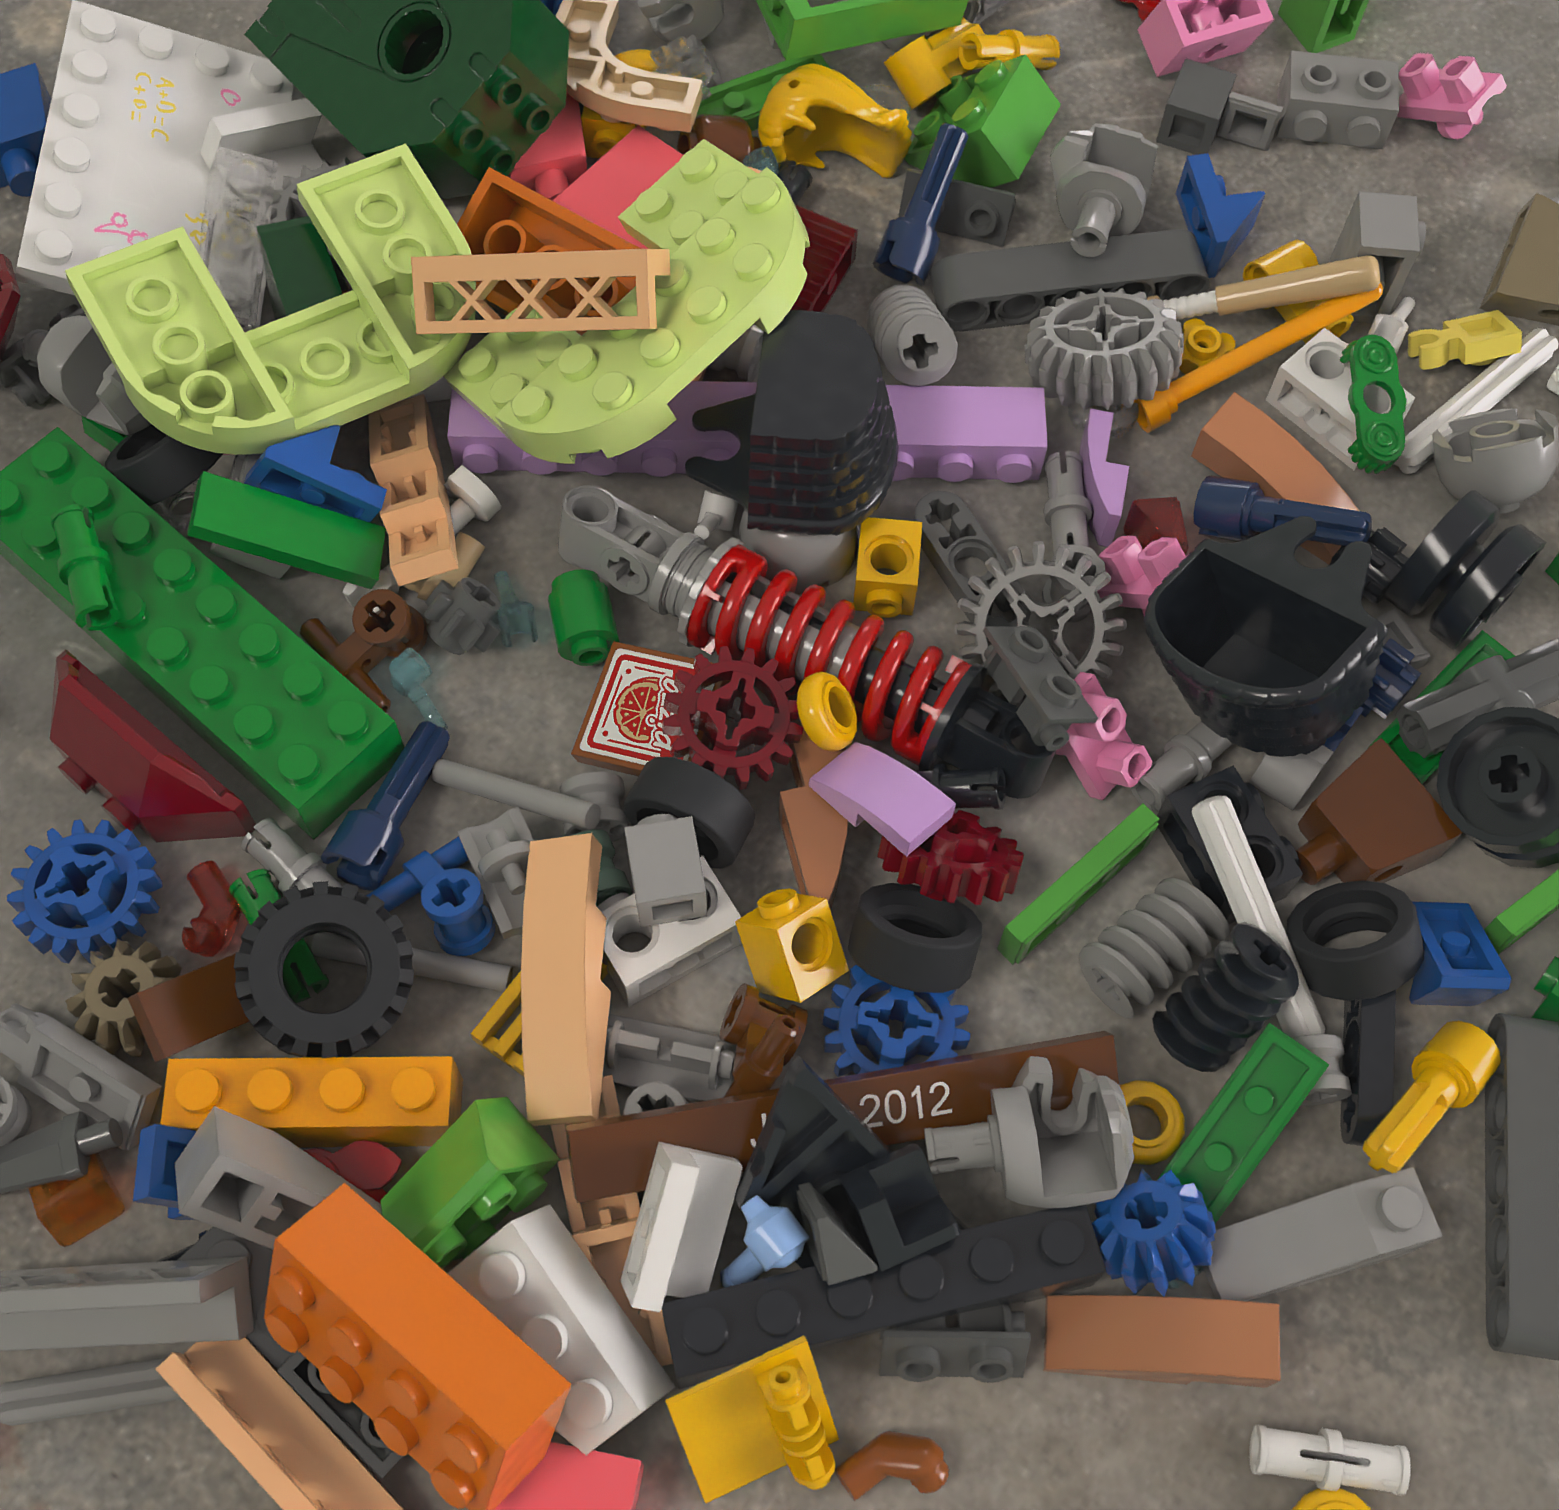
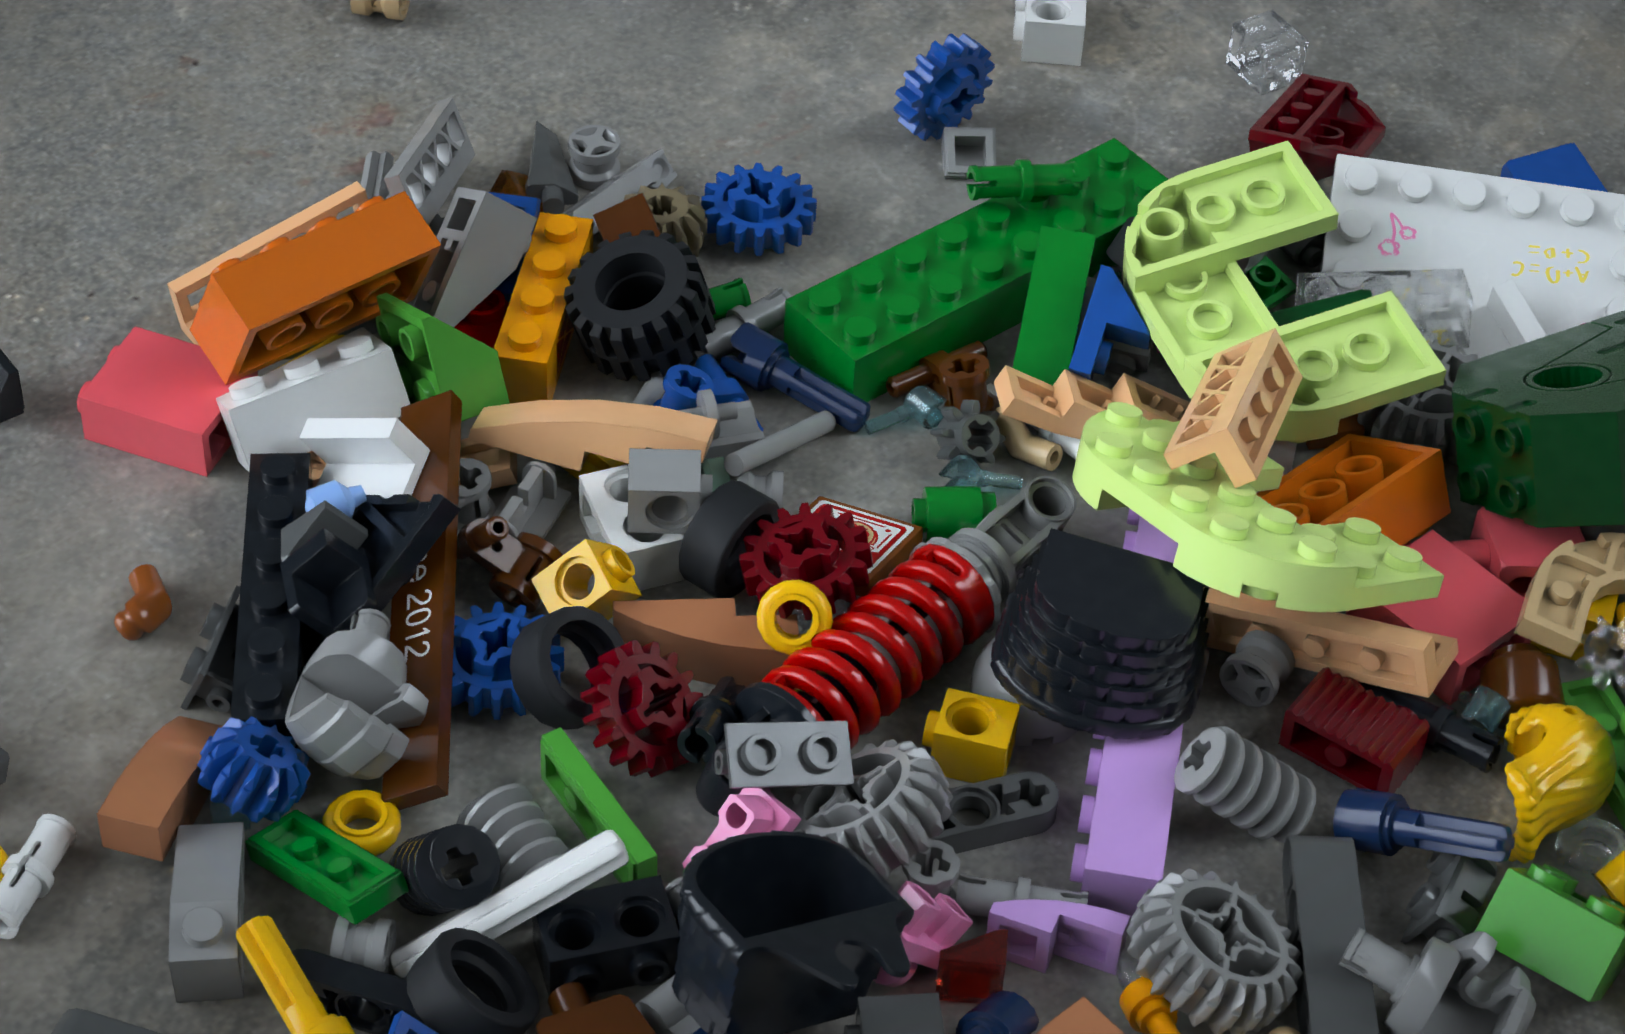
camera: 100 degrees right, 20 degrees down
(136, 765) = (875, 218): dark red wedge -> none
(219, 915) = (755, 278): clear red arm -> none
(757, 1422) = (201, 512): yellow hinge -> none
(885, 794) = (697, 639): lavender slope -> none

